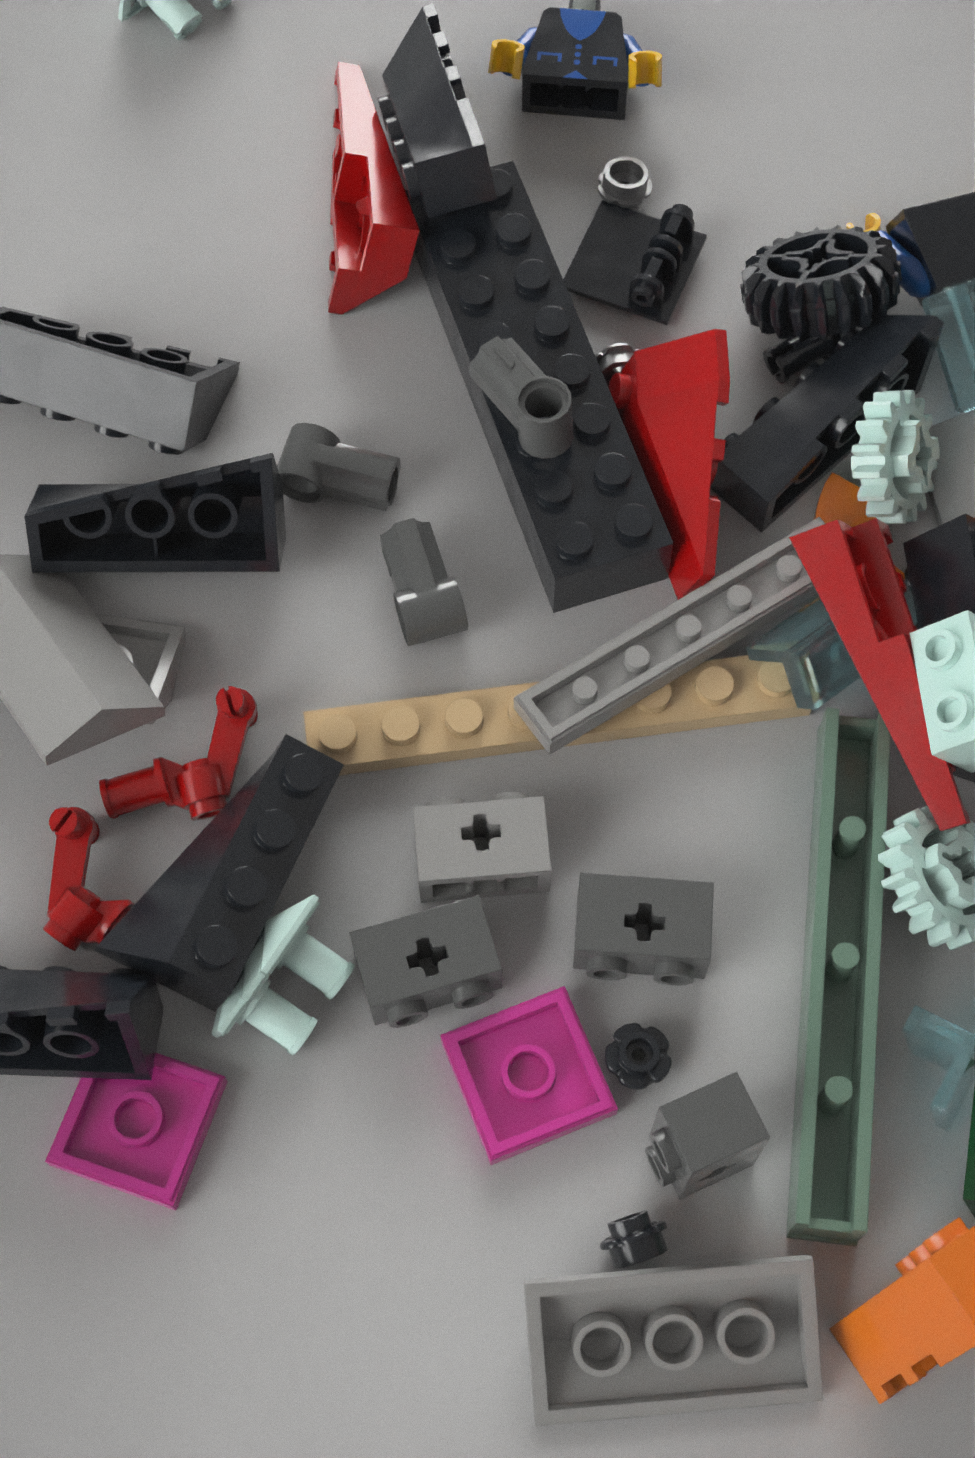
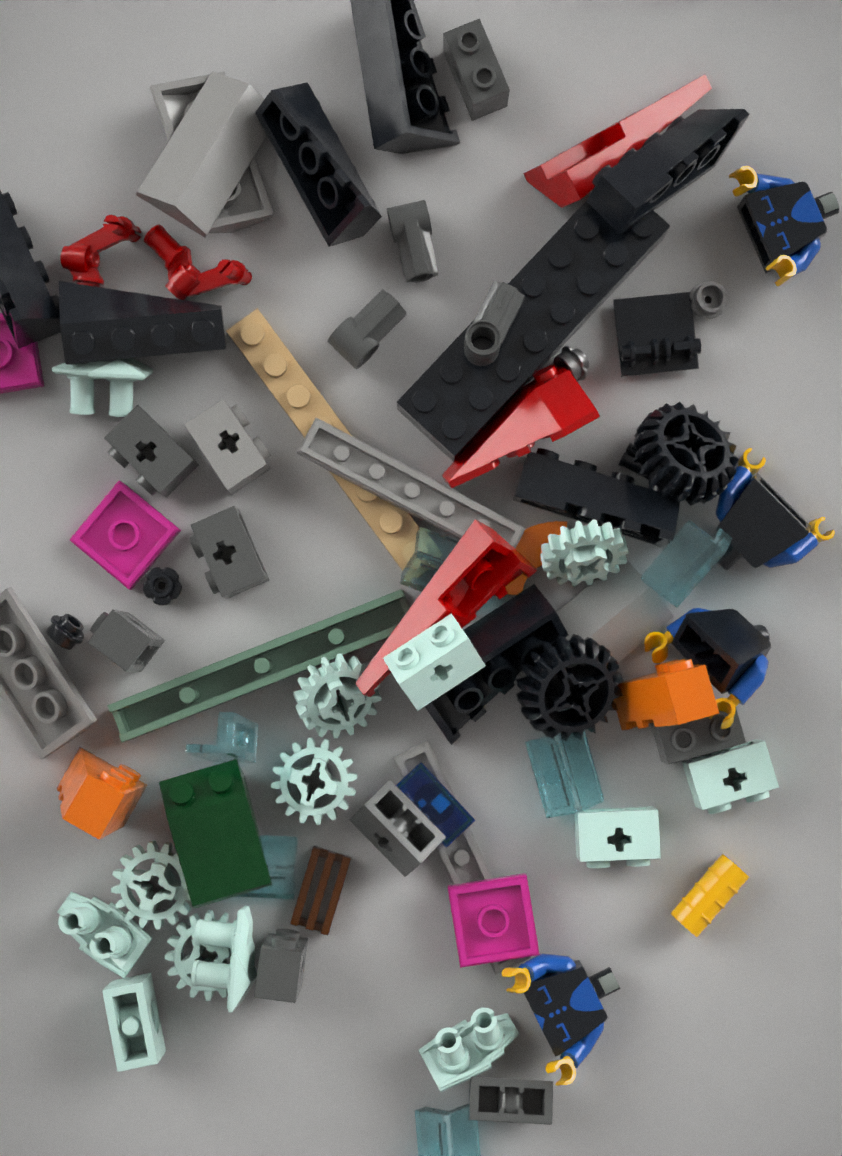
camera: 65 degrees right, 20 degrees up
(161, 289) = (475, 69): none -> dark grey brick

